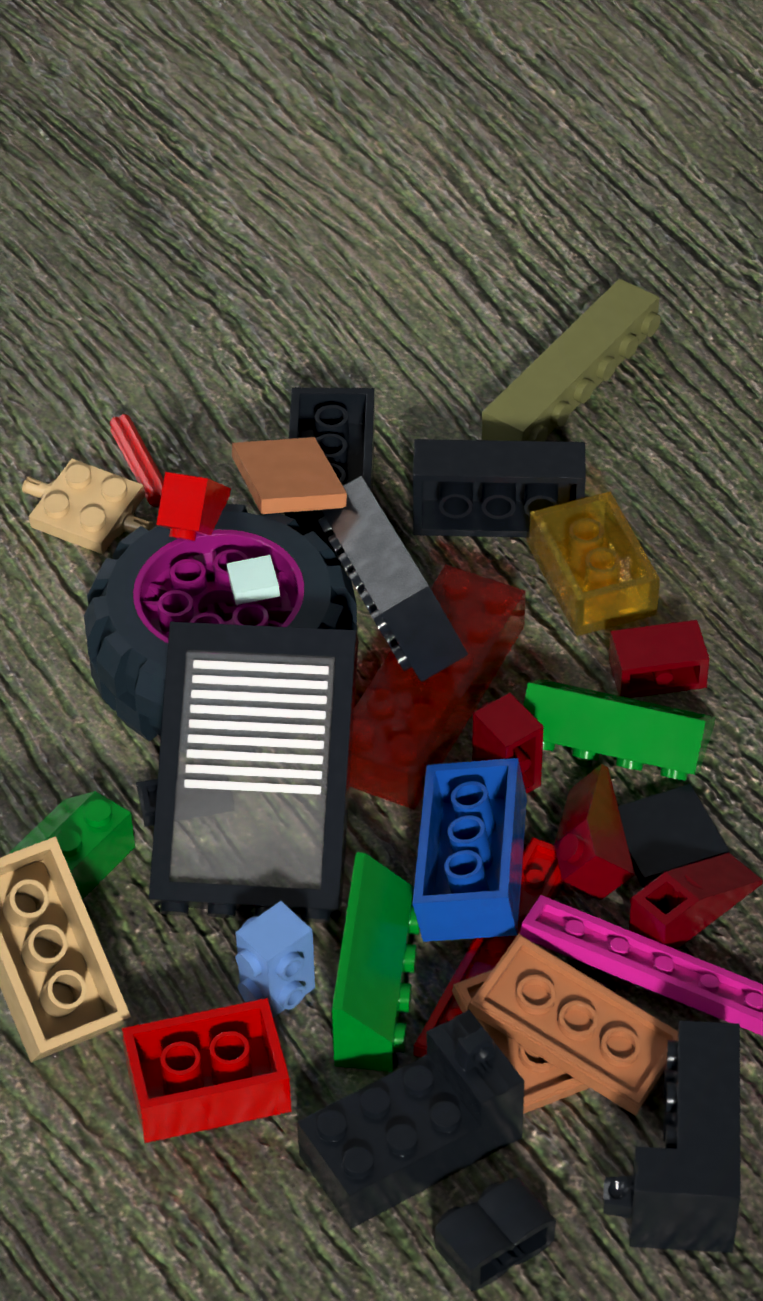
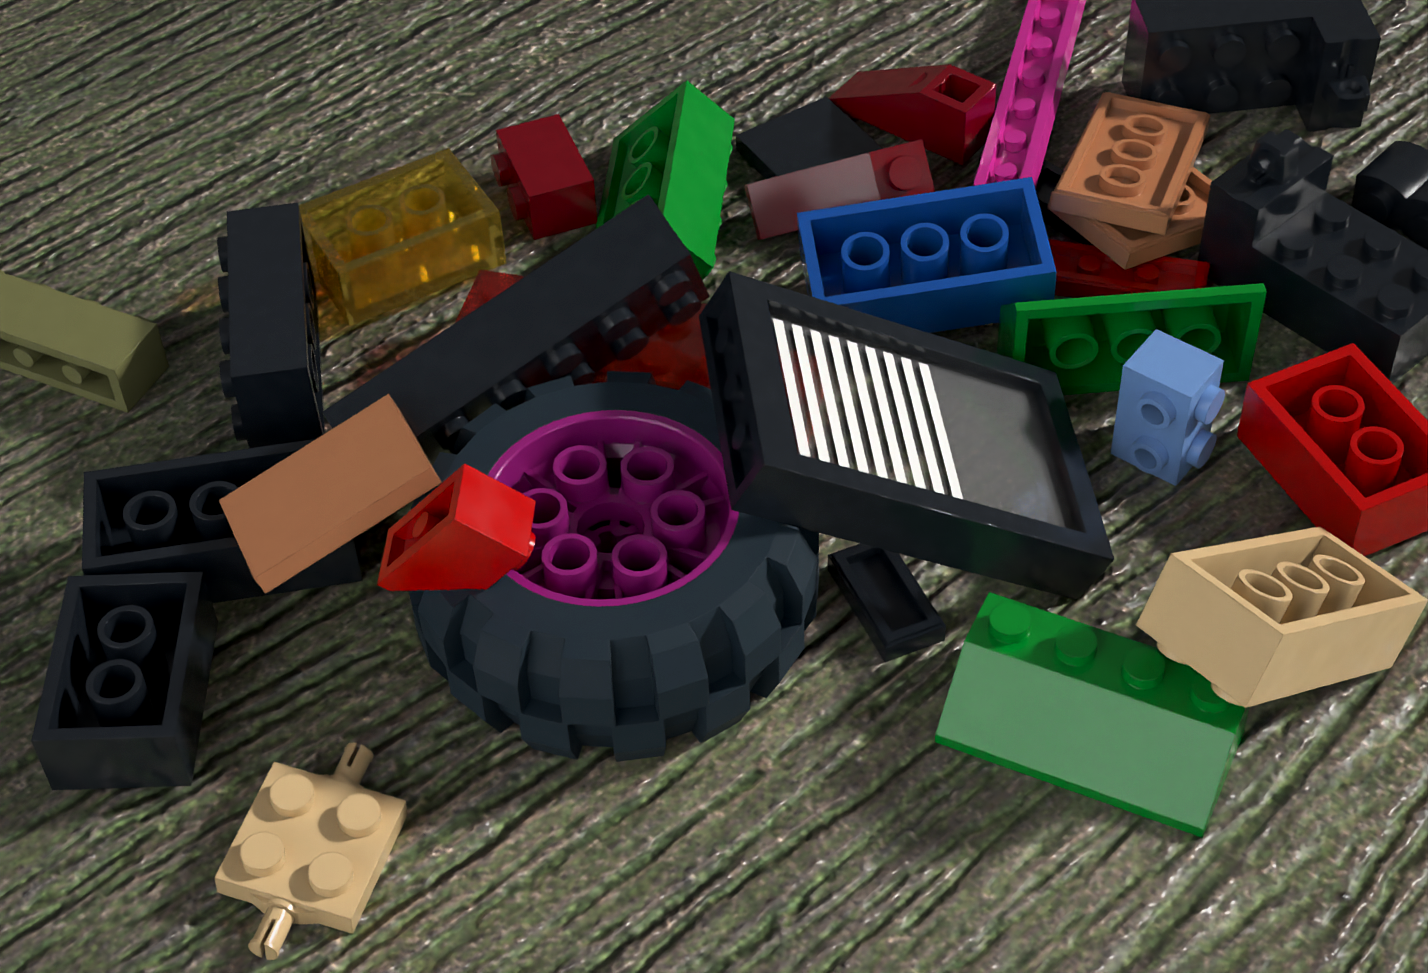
camera: 100 degrees left, 0 degrees up
(138, 457) = (189, 801): red axle -> none
(207, 412) = (126, 681): none -> black brick
(253, 579) = (588, 460): light aqua tile -> none
(509, 731) = (754, 238): dark red brick -> none

